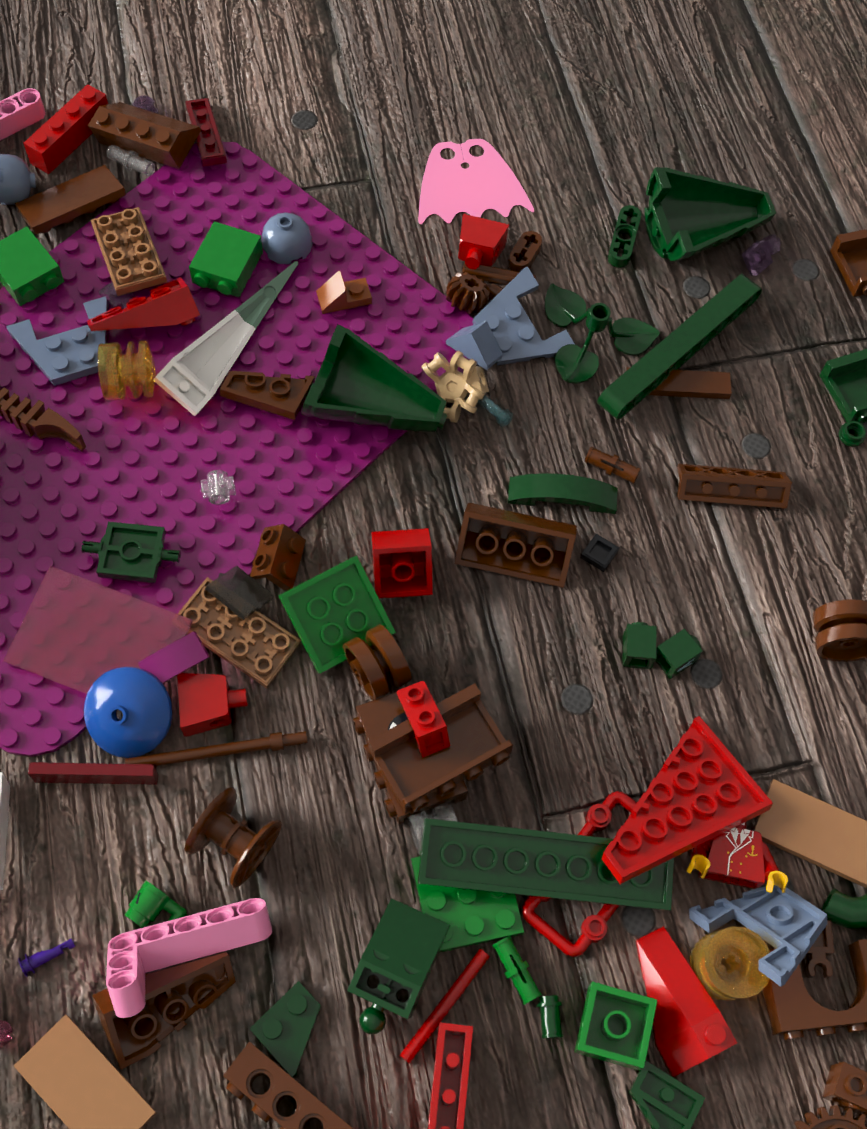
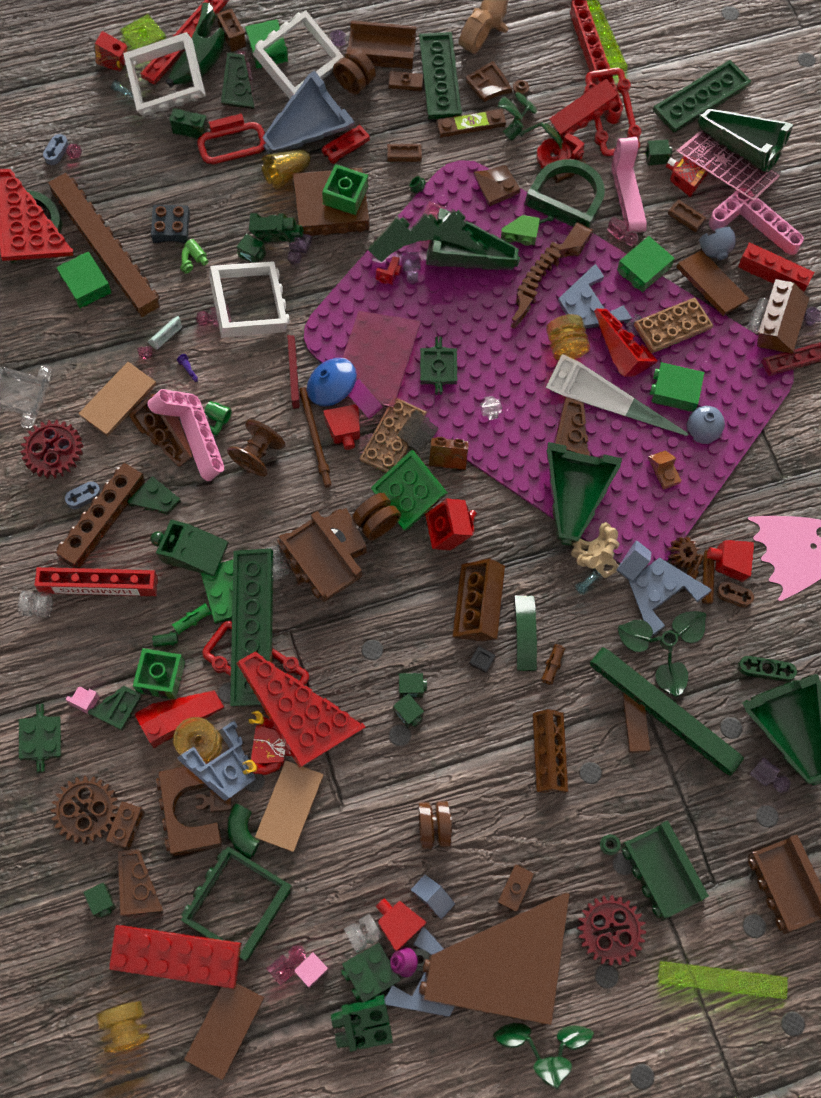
camera: 85 degrees right, 5 degrees up
(424, 718) = (335, 540): red bracket -> none
(444, 1006) = (171, 581): red bar -> none

